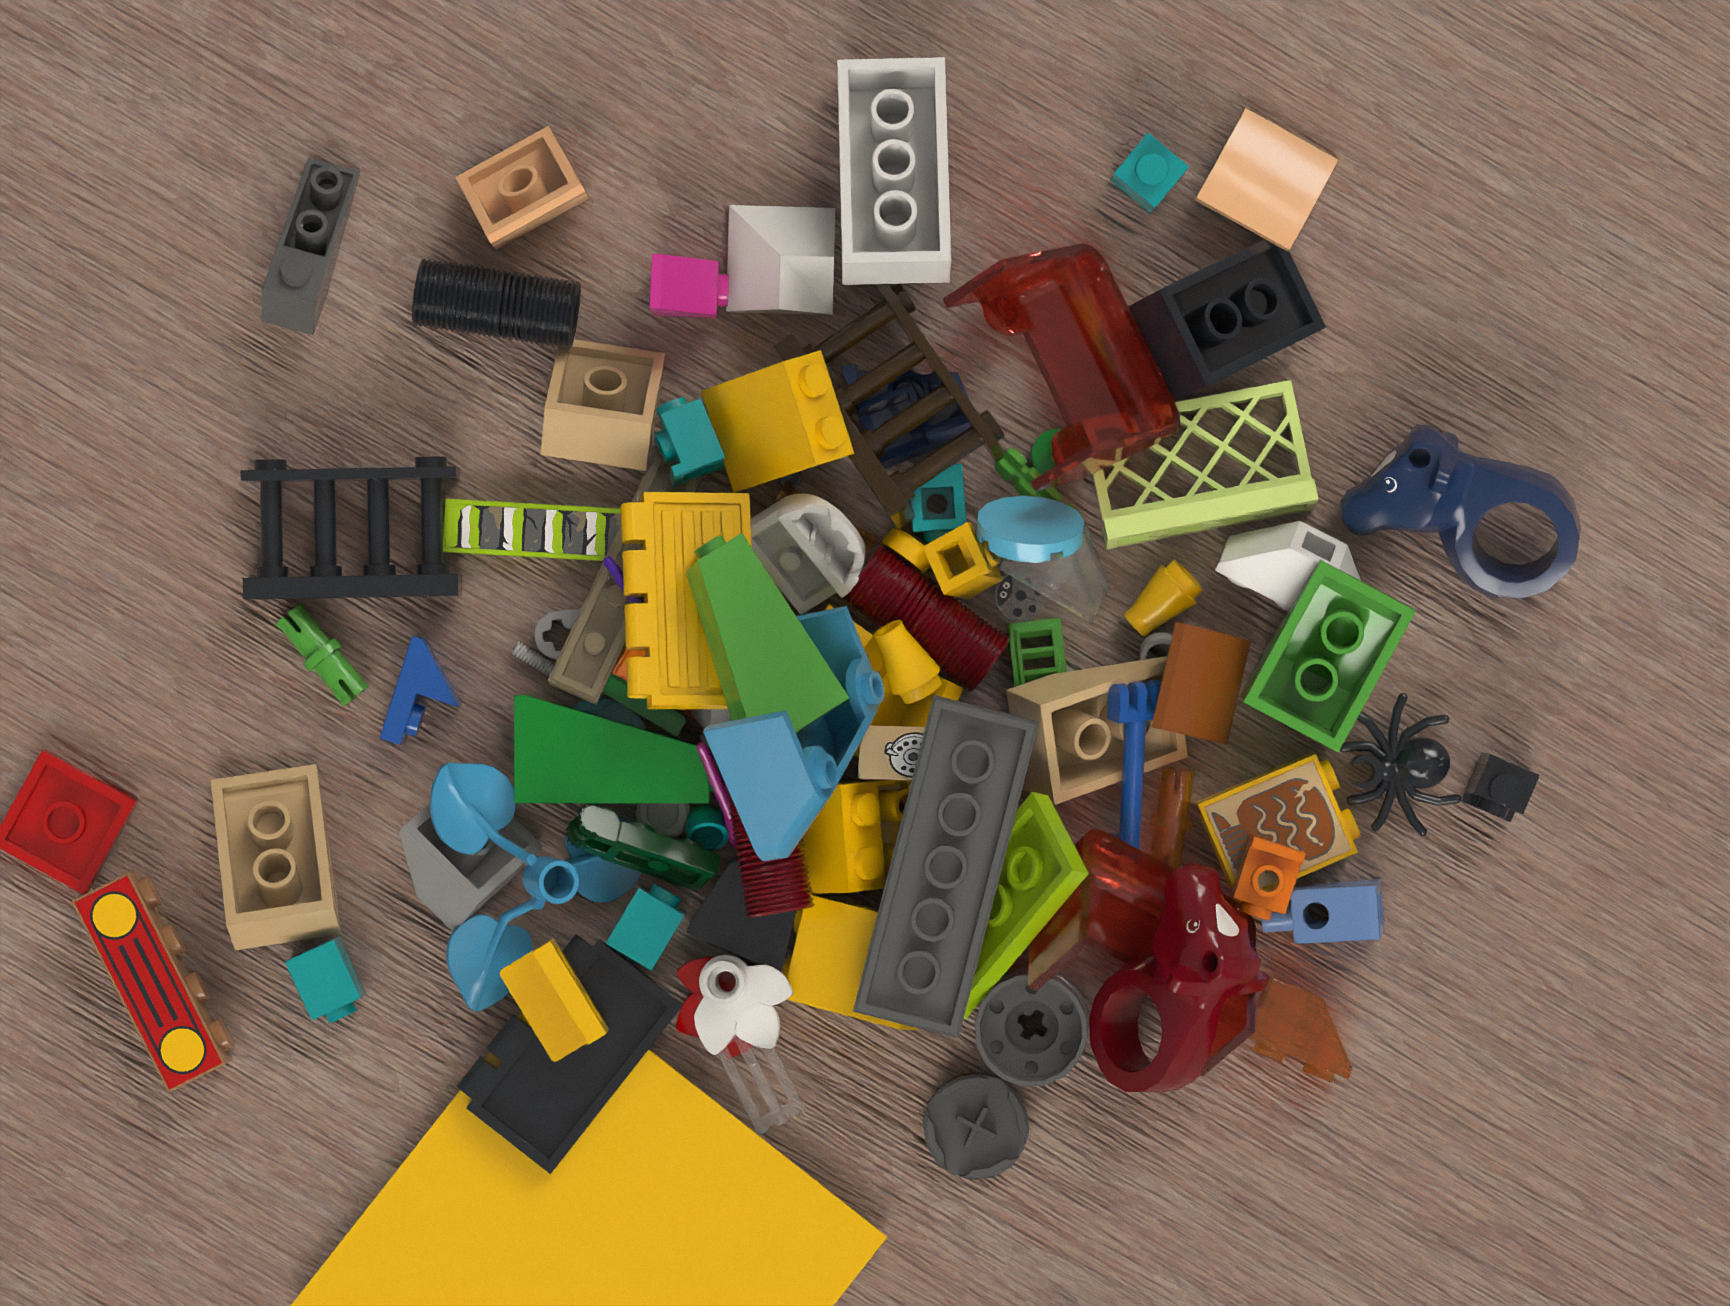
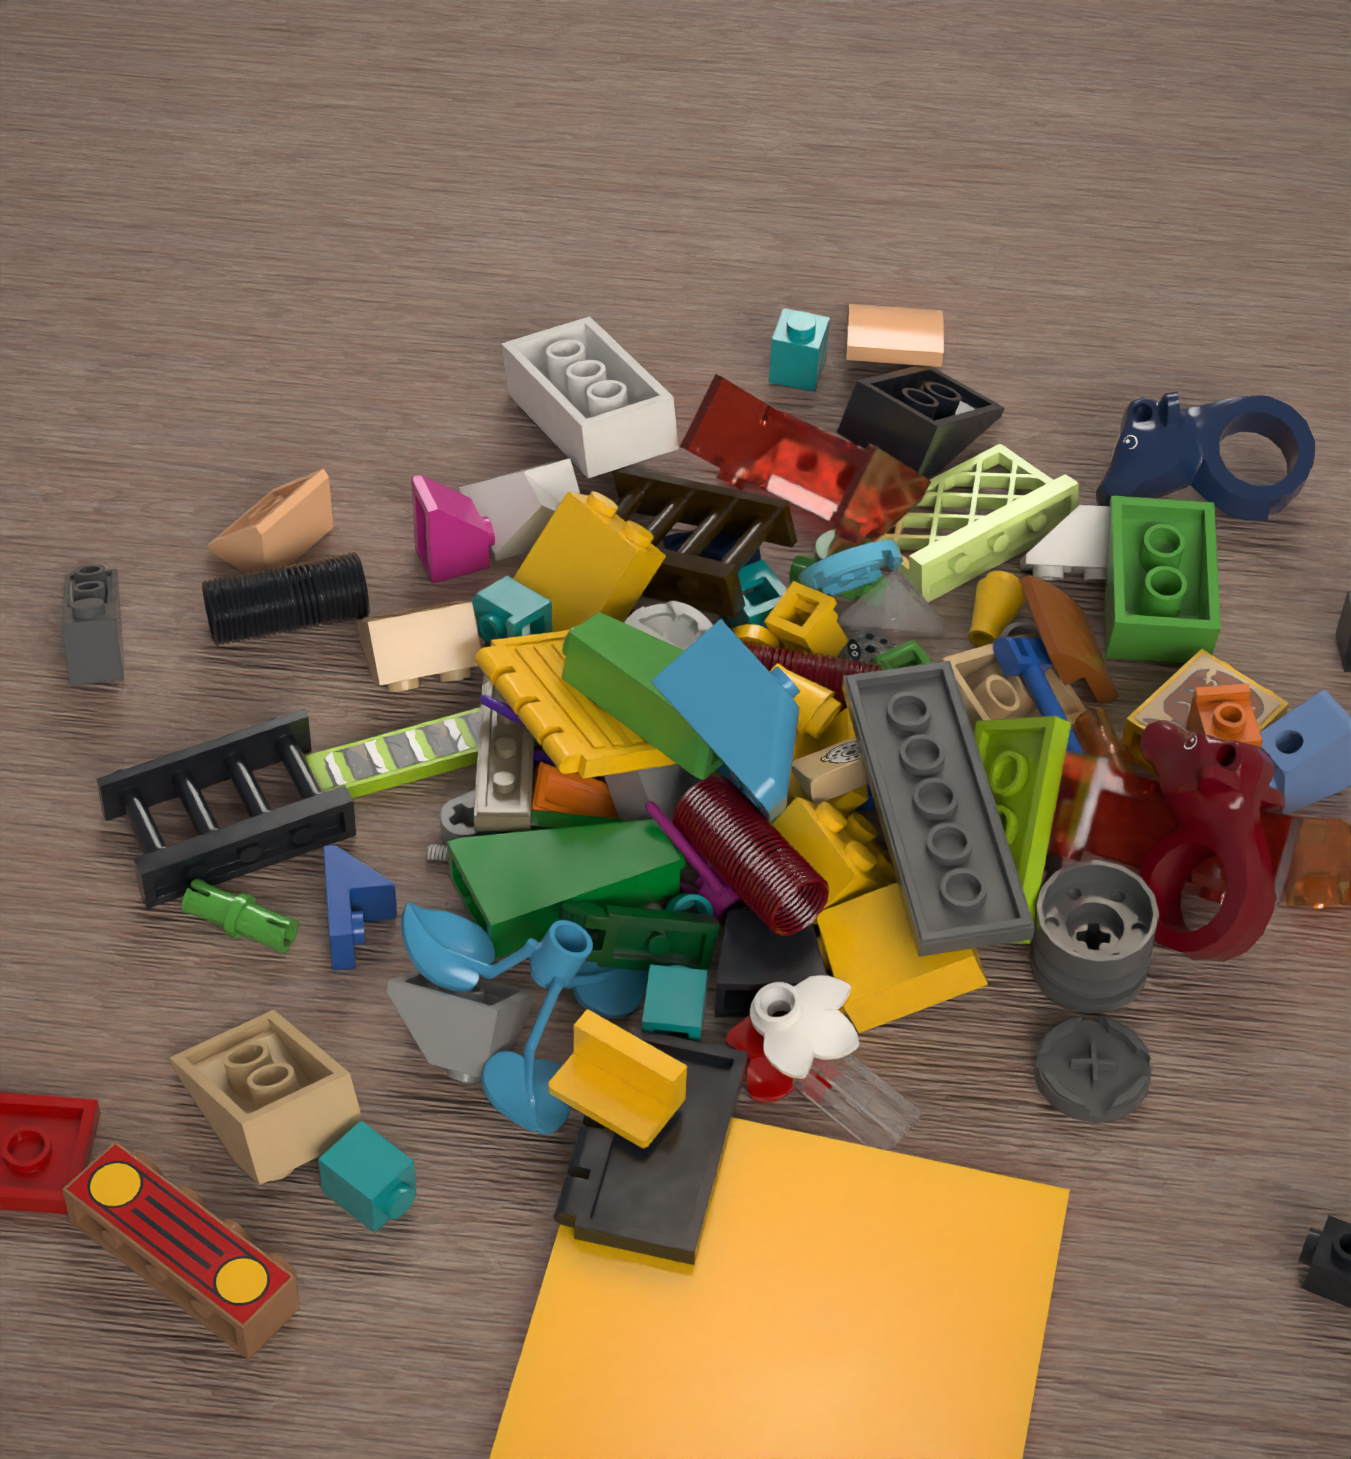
camera: 25 degrees left, 40 degrees down
(1401, 766) = (1279, 651): black animal -> none

